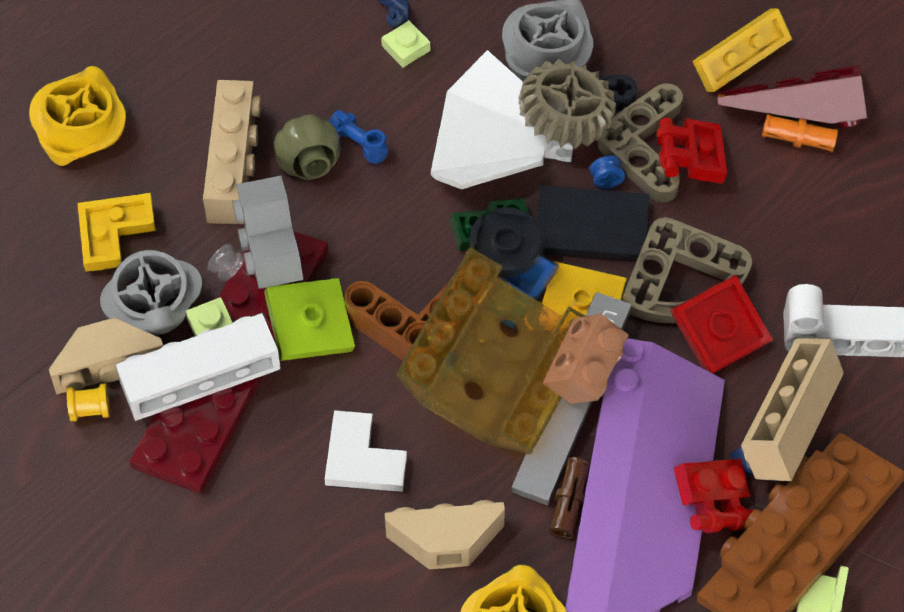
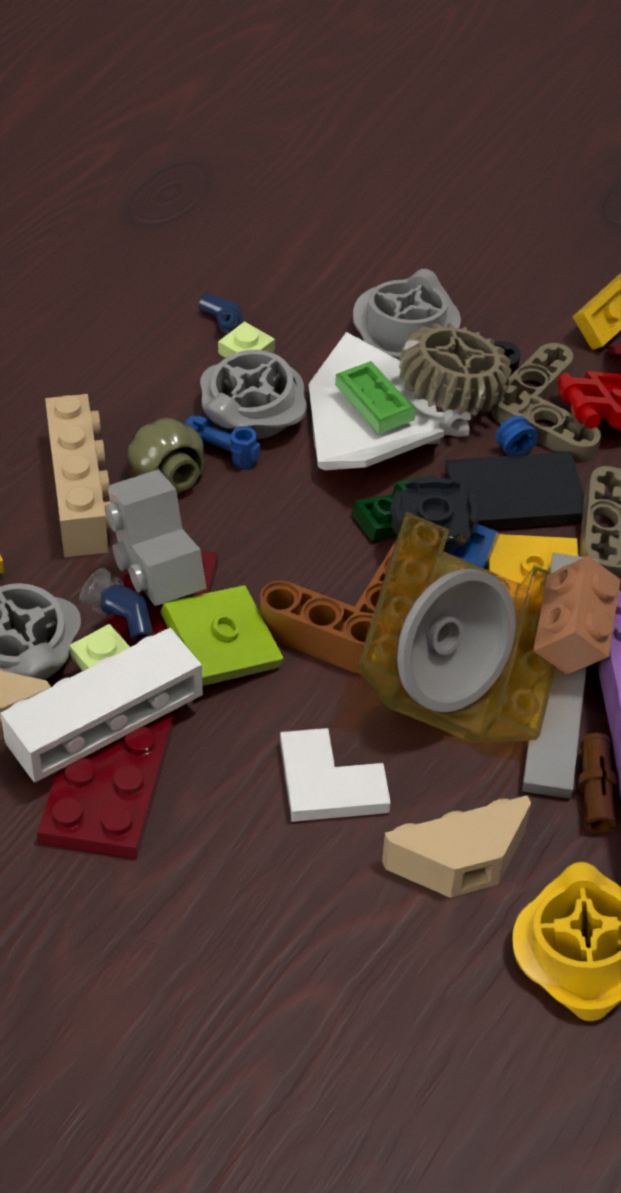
camera: 15 degrees left, 10 degrees down
(241, 284) = (130, 605): none -> dark blue arm
(392, 109) = (252, 381): none -> light grey piece
(476, 367) = (456, 640): none -> light grey dish
(494, 118) = (375, 397): none -> bright green plate

